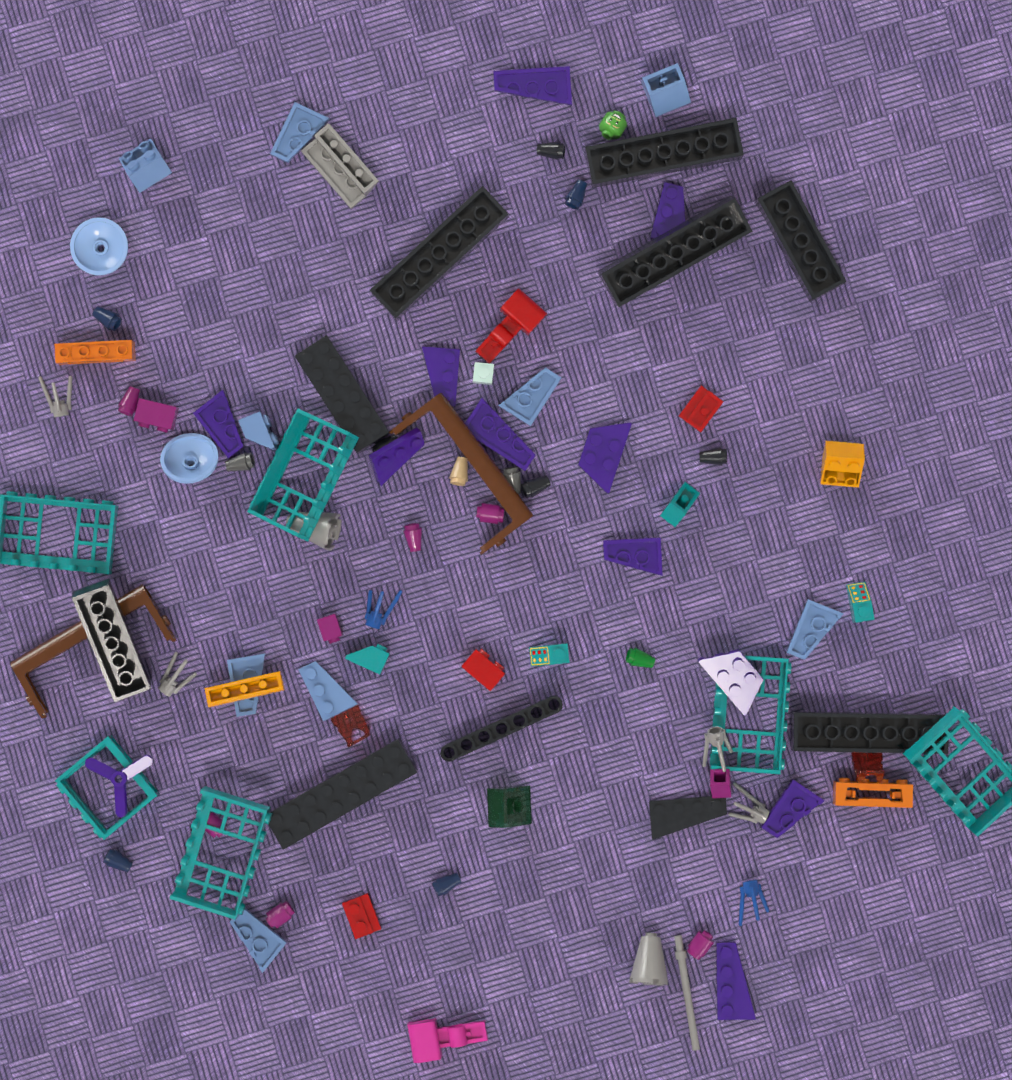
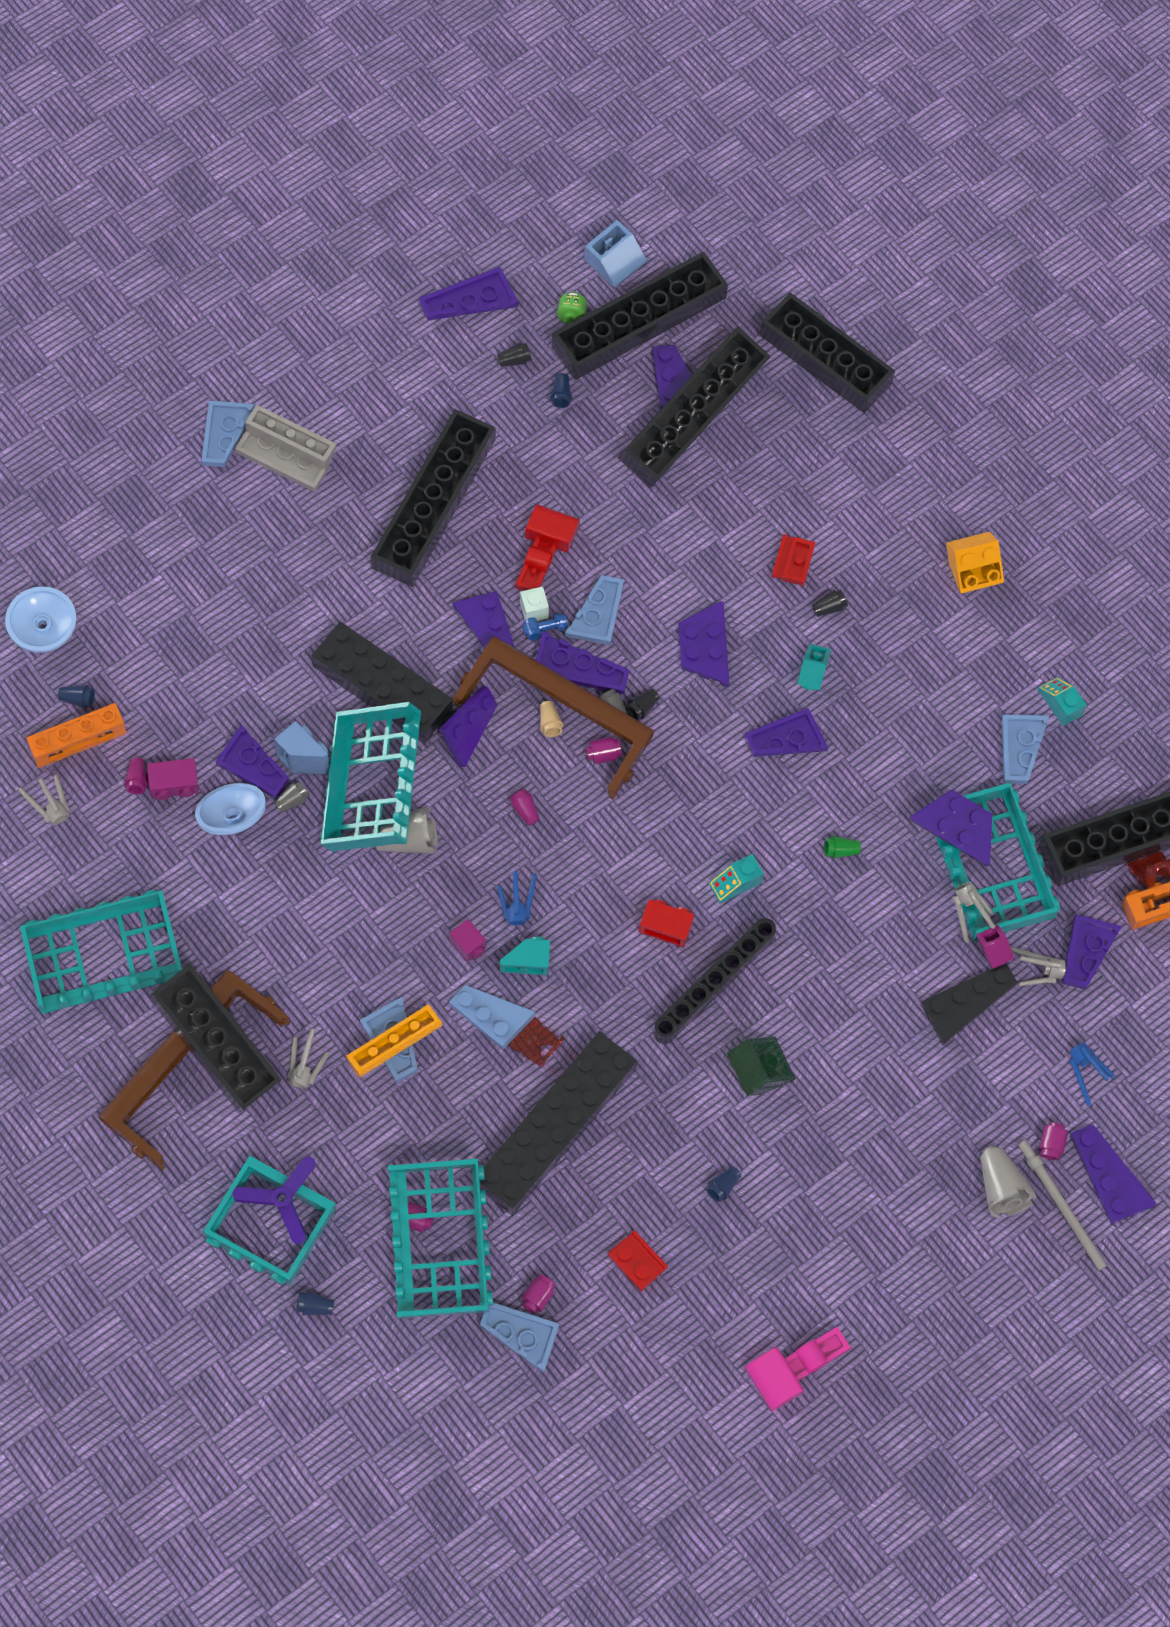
camera: 25 degrees left, 20 degrees down
(145, 165) = (62, 520): medium blue slope -> none
(475, 392) = (533, 628): none -> blue bar

